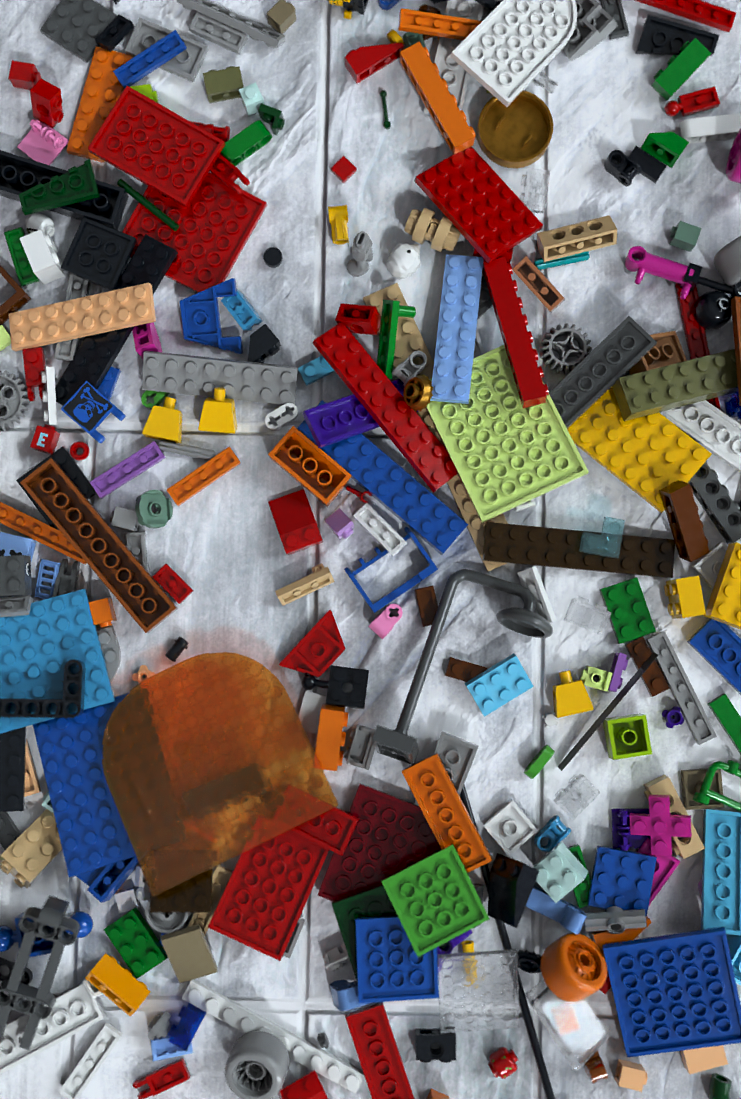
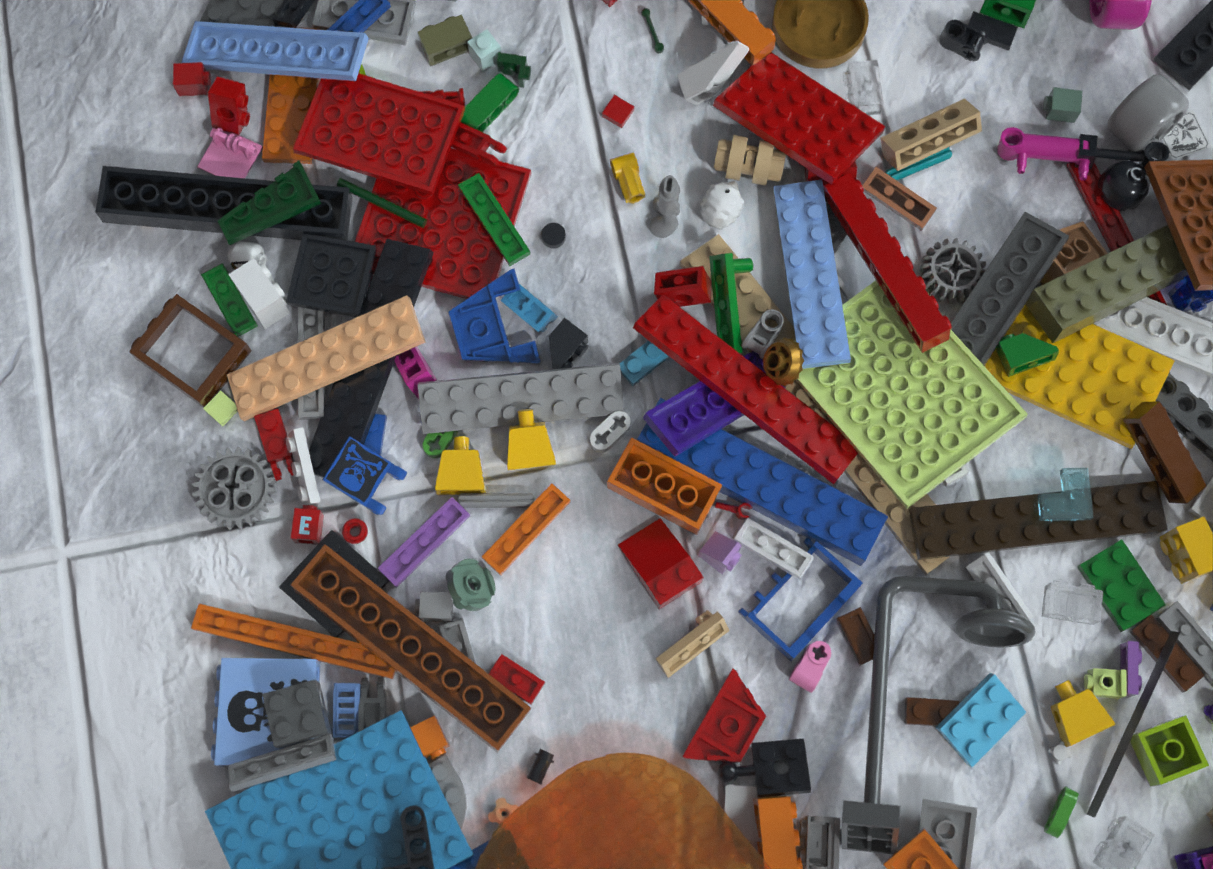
camera: 10 degrees left, 10 degrees down
(91, 66) = (276, 50): none -> light blue plate
(229, 236) = (494, 219): none -> green plate
(417, 156) = (708, 76): none -> white slope
(600, 424) = (1024, 353): none -> green slope

